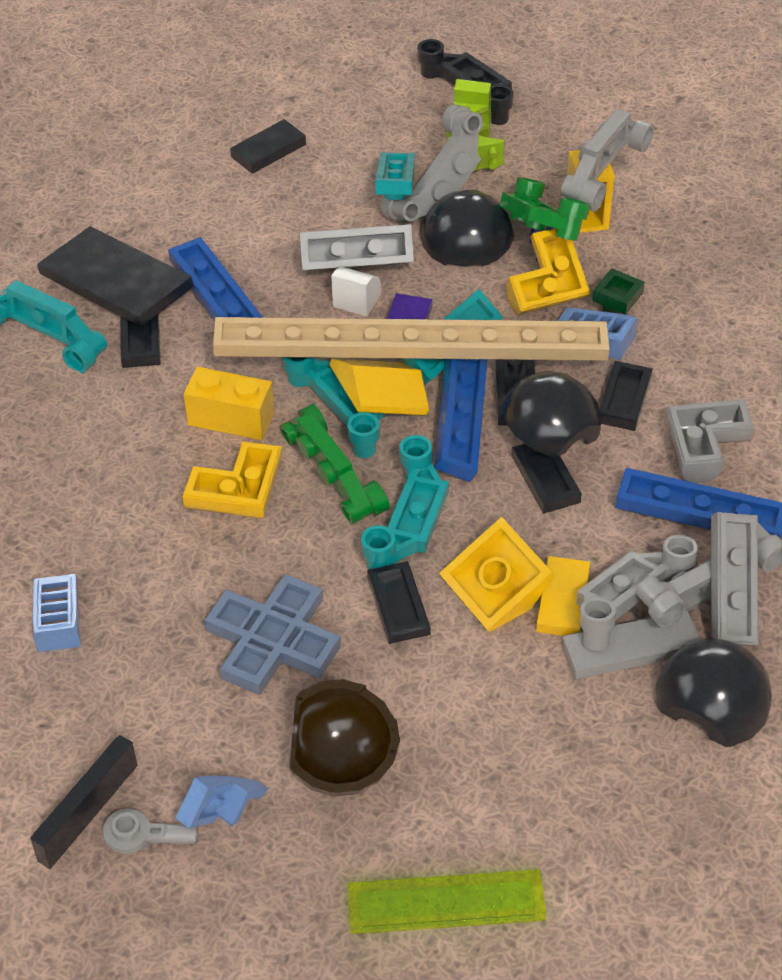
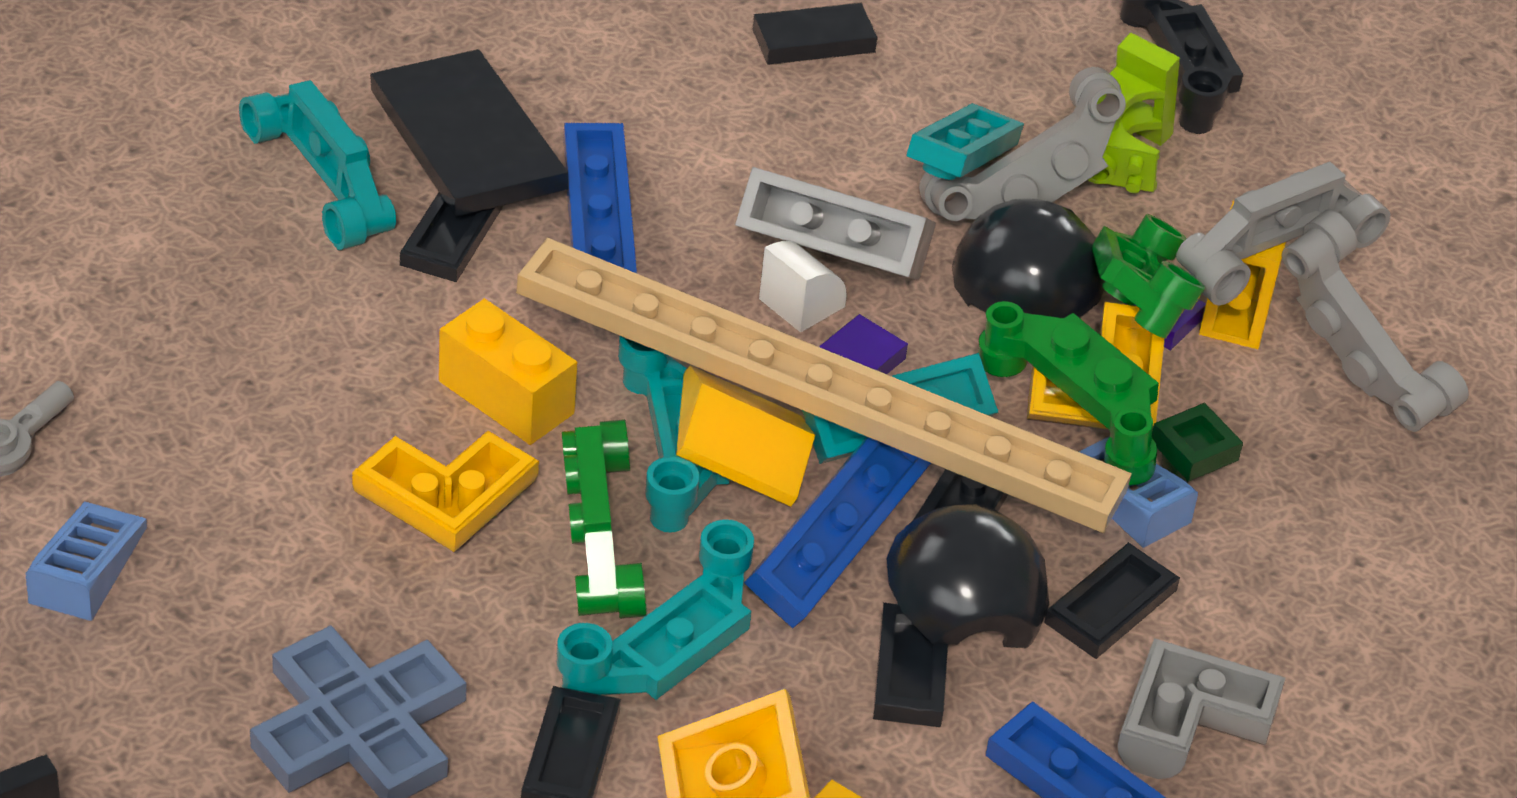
camera: 20 degrees right, 5 degrees down
(545, 275) = (1084, 369): none -> green plate
(665, 200) = (1357, 336): none -> light grey plate

